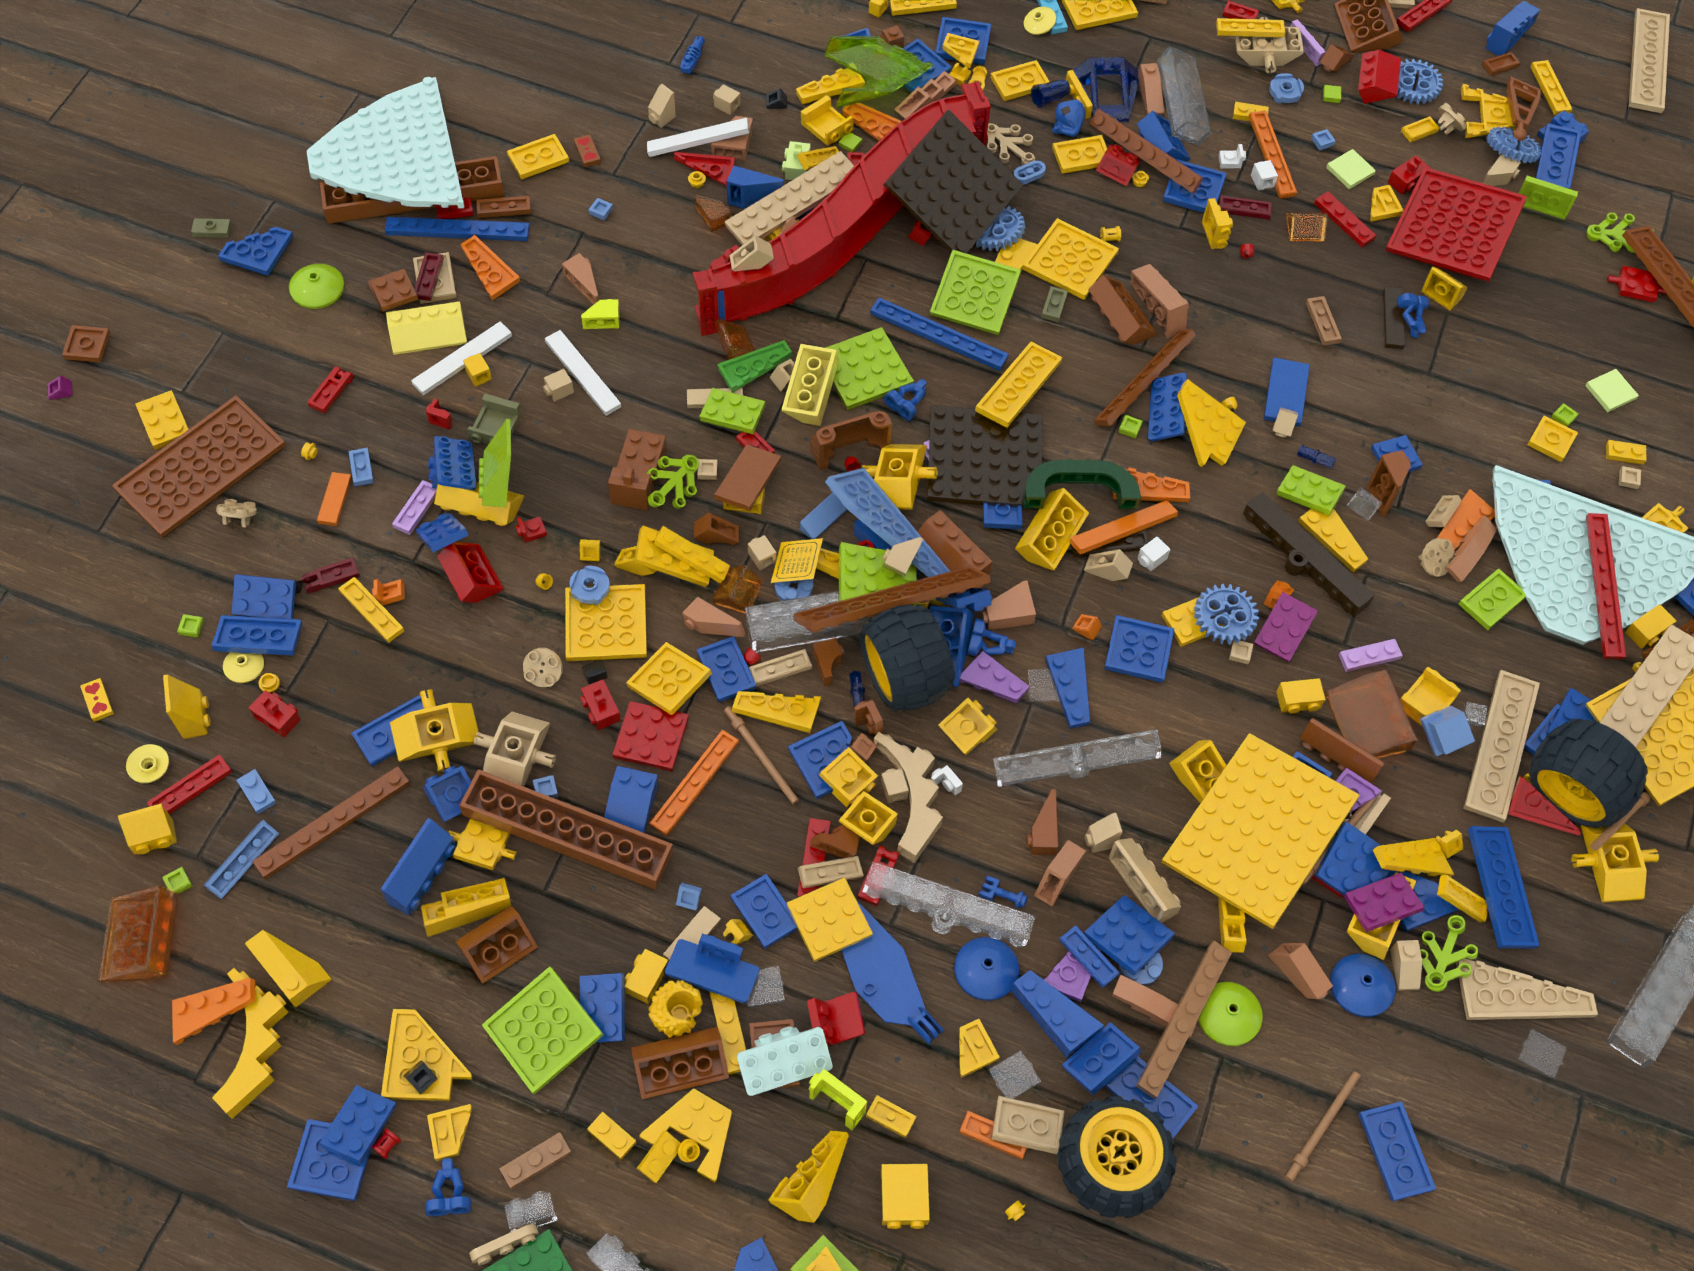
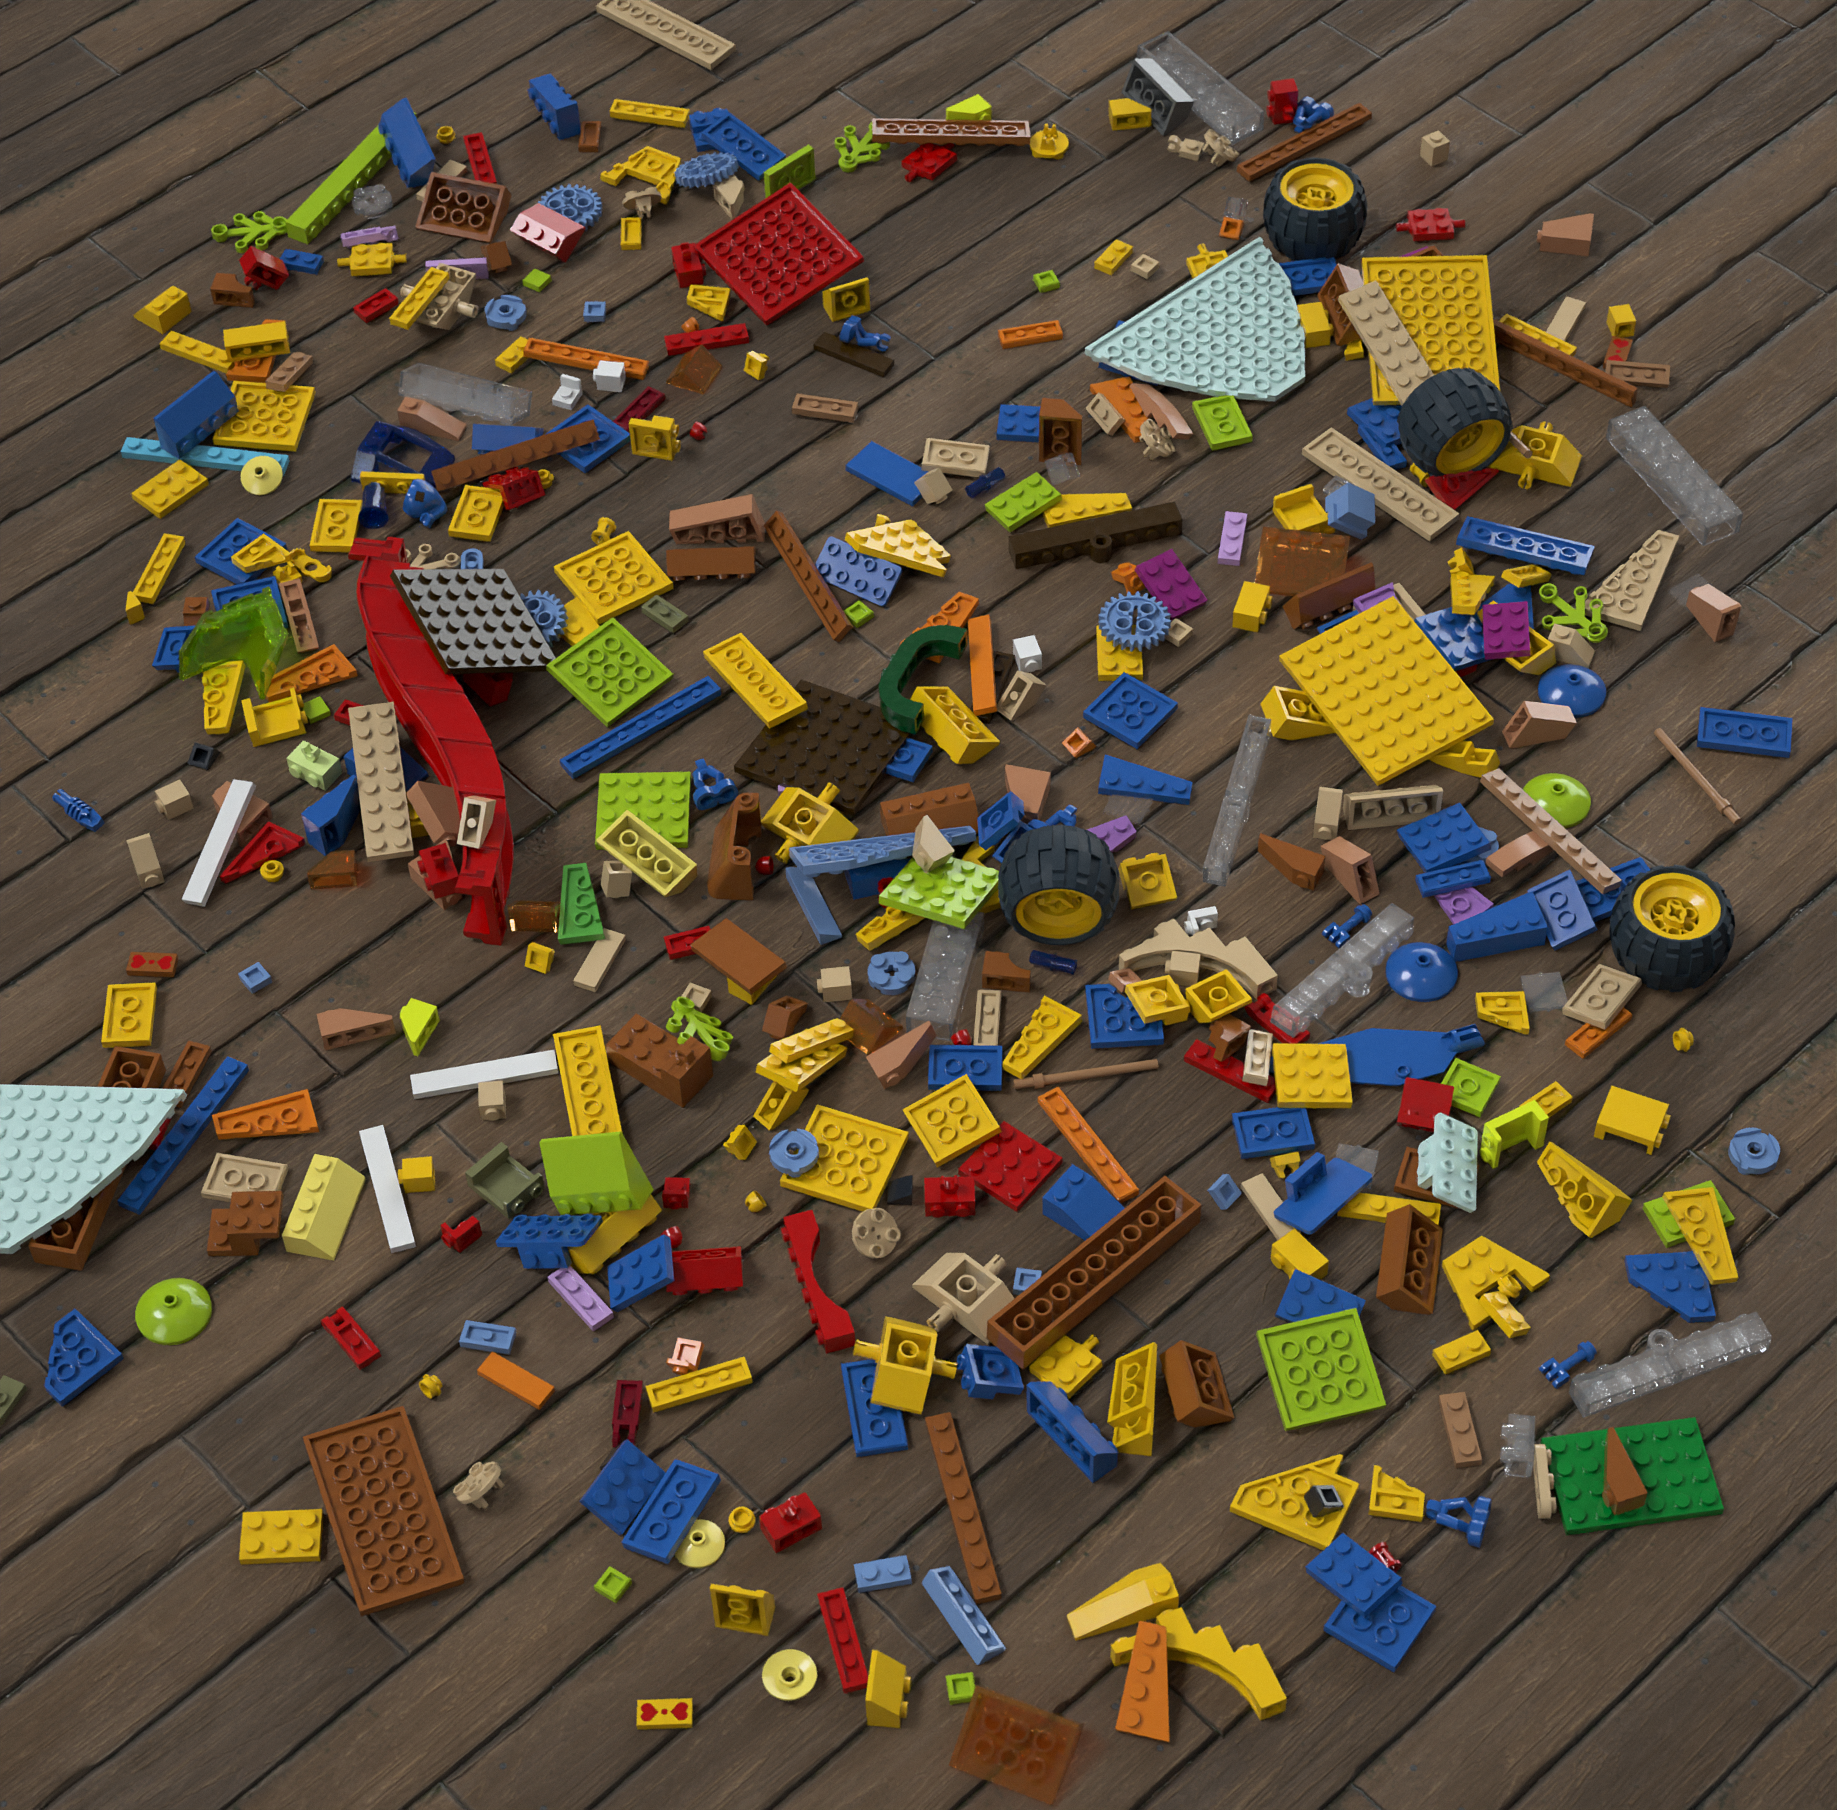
camera: 60 degrees left, 10 degrees down
(59, 388) = (155, 1646): magenta slope -> none
(86, 343) = (104, 1592): dark orange plate -> none
(428, 276) = (238, 1177): dark red tile -> none
(490, 542) = (675, 1235): none -> red hinge
(519, 625) = (833, 1322): none -> red arch
(593, 438) = (587, 1081): none -> yellow plate
(648, 1236) = (1586, 1351): none -> blue hinge
(675, 1008) = (1348, 1243): yellow hair -> none
(696, 361) = (539, 957): none -> yellow tile
(732, 411) = (633, 944): lime plate -> none
(797, 560) = (867, 953): yellow sticker -> none
(813, 158) = (331, 739): yellow plate -> none
(868, 714) = (1100, 955): dark orange bracket -> none
(873, 603) = (982, 871): dark orange plate -> none
(879, 1047) = (1471, 1086): none -> lime plate
(1329, 426) = (955, 457): none -> tan tile
(1338, 259) = (756, 364): none -> yellow tile
(1350, 169) = (646, 307): yellowish green tile -> none
(1350, 202) = (690, 325): none -> orange hinge
(1498, 427) = (1030, 334): none -> orange tile
(1522, 1074) = (1714, 611): none -> nougat slope
(1528, 93) = (641, 137): dark orange plate -> none
(1552, 439) = (1069, 300): yellow plate -> none
(1605, 586) = (1259, 331): red plate -> none
(1611, 390) = (1039, 235): yellowish green tile -> none

